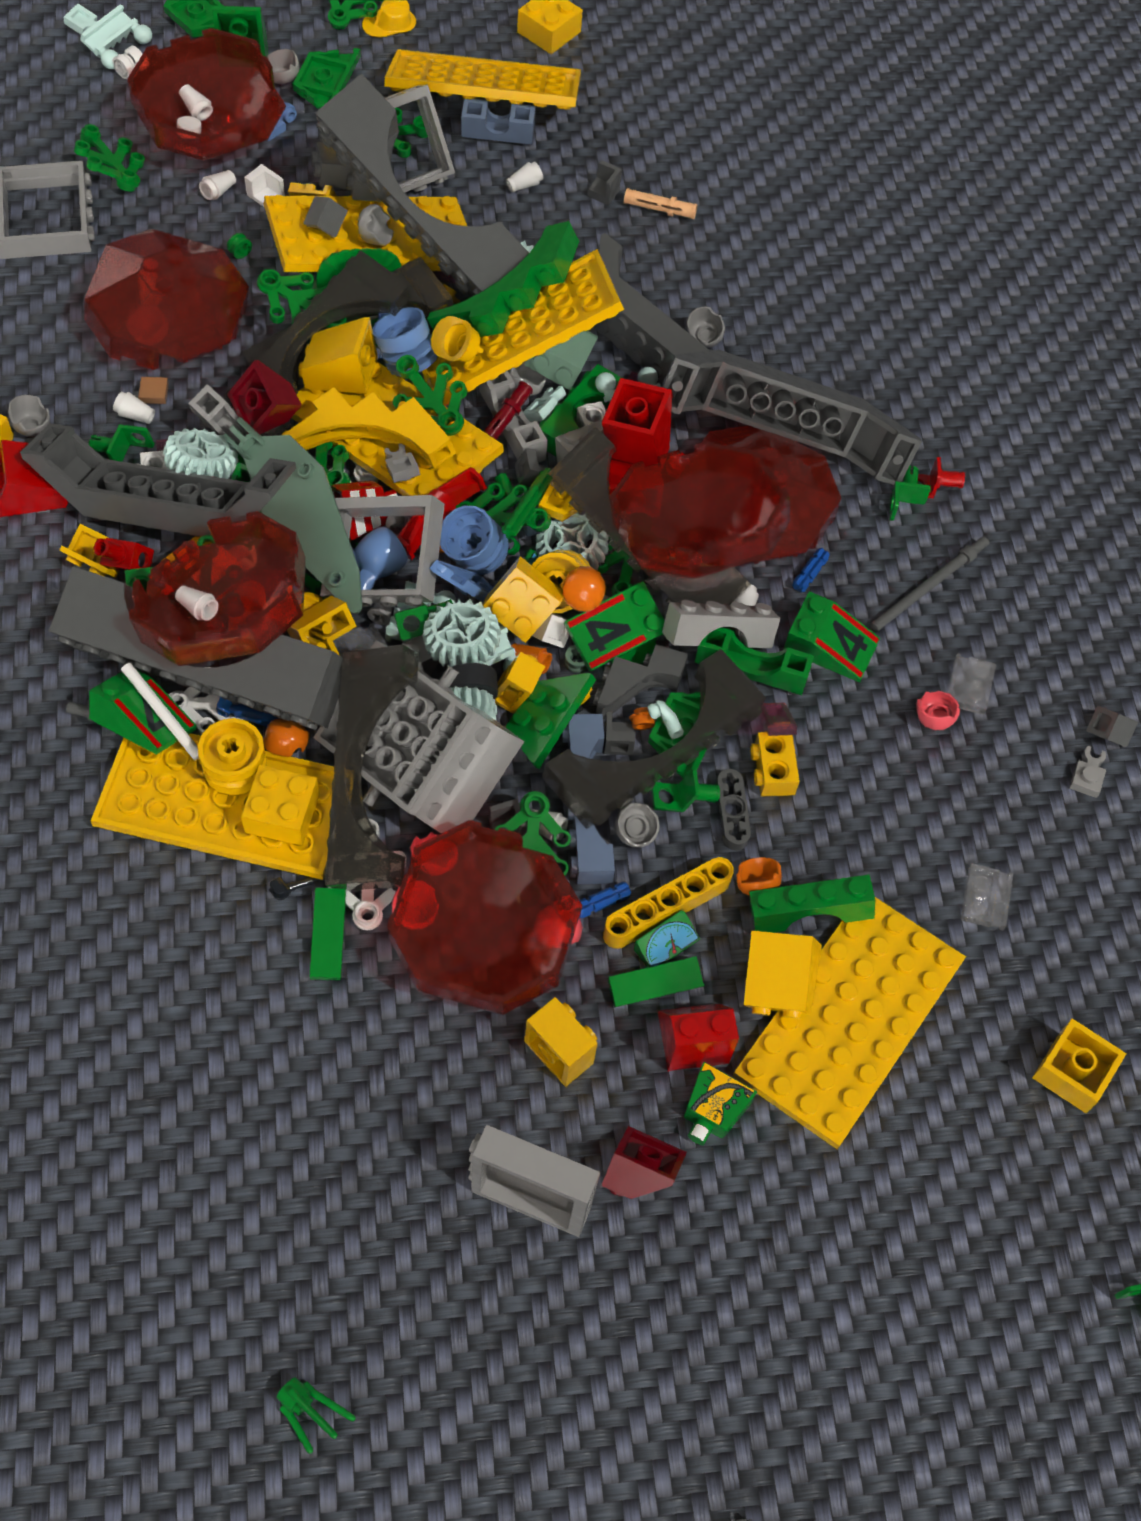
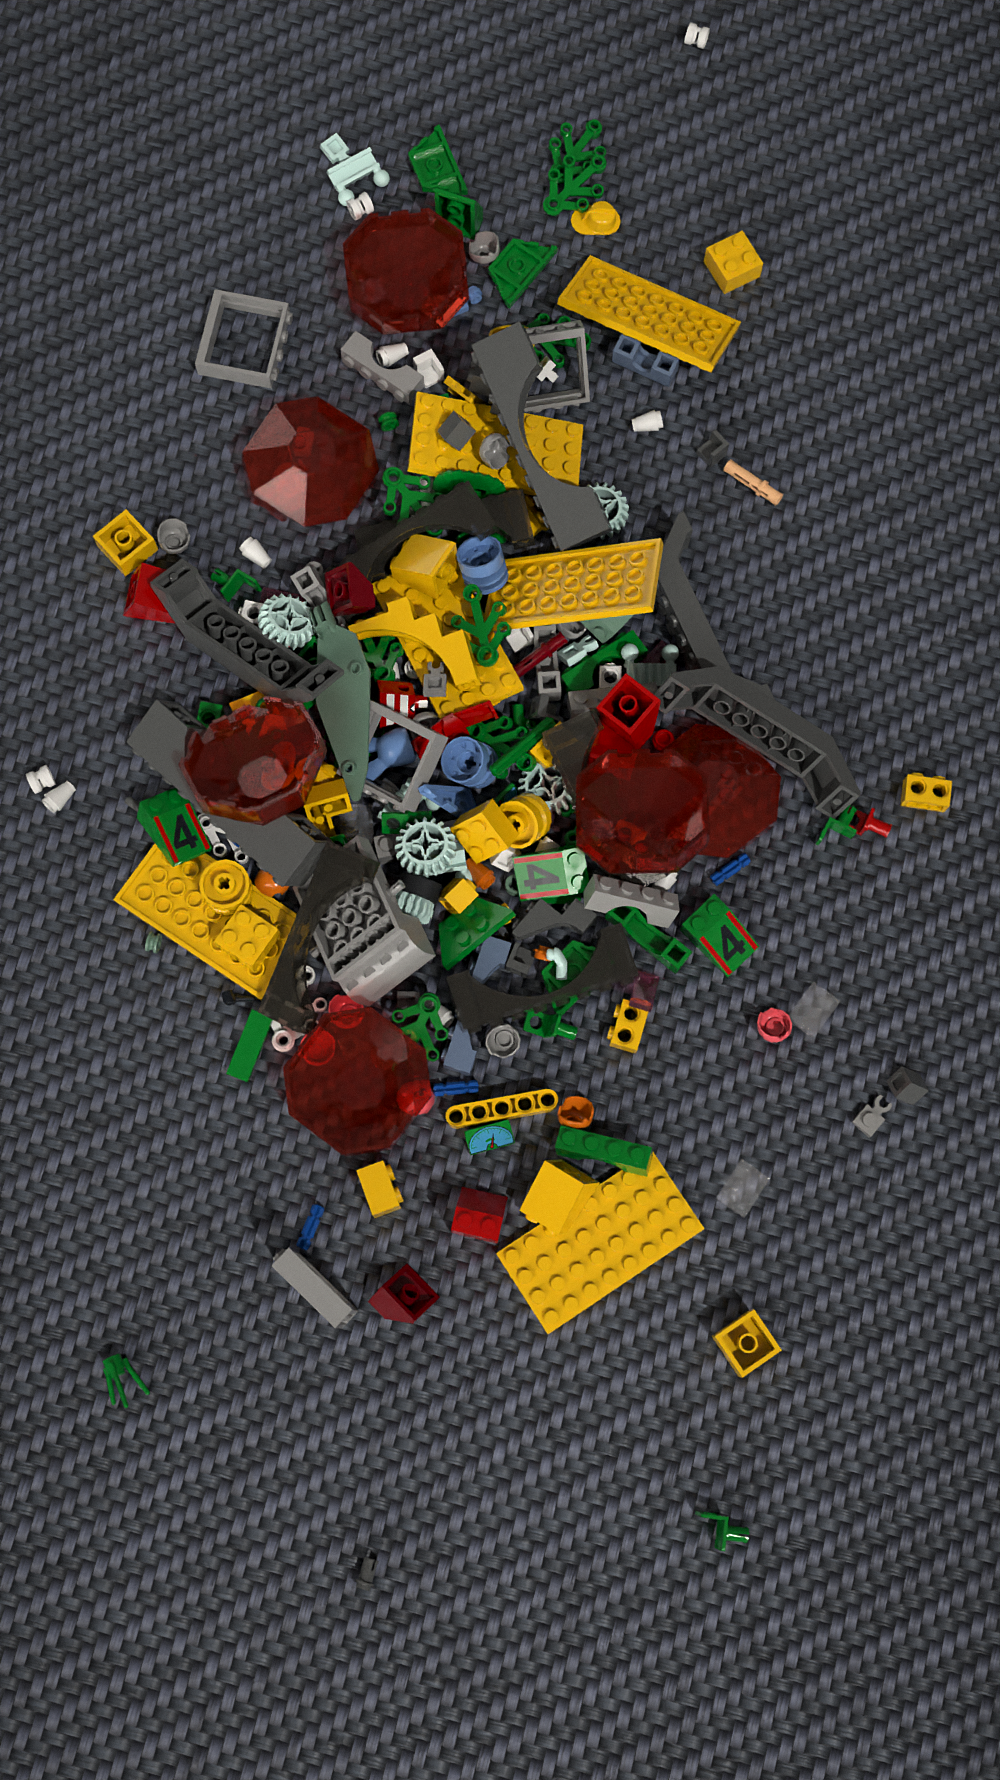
camera: 25 degrees right, 15 degrees up
(82, 551) = (186, 675): yellow bracket -> none
(122, 553) = (204, 687): red bracket -> none
(126, 178) = (318, 327): green plant -> none
(153, 390) = (276, 539): medium nougat tile -> none
(160, 854) = (153, 942): none -> sand green bush
(161, 710) = (186, 831): white bar -> none
(189, 123) = (385, 292): white tile -> none
(197, 104) = (398, 271): white cone -> none
(198, 603) = (238, 760): white cone -> none
(240, 206) = (400, 382): none -> light grey arch
(399, 158) = (547, 365): none -> white tile
(455, 340) = (518, 583): yellow piece -> none
(475, 407) = (520, 639): none -> white panel
(489, 1114) = (310, 1227): none -> blue axle
(519, 289) = (583, 554): green arch -> none
(584, 588) = (533, 839): orange hair -> none
(655, 982) = (468, 1165): green tile -> none
(705, 326) = (737, 619): light grey hair -> none
(716, 1104) = (472, 1272): torso -> none
(727, 820) = (571, 1064): dark grey beam -> none
(965, 556) = (862, 897): dark grey bar -> none
(982, 434) = (926, 798): none -> yellow brick

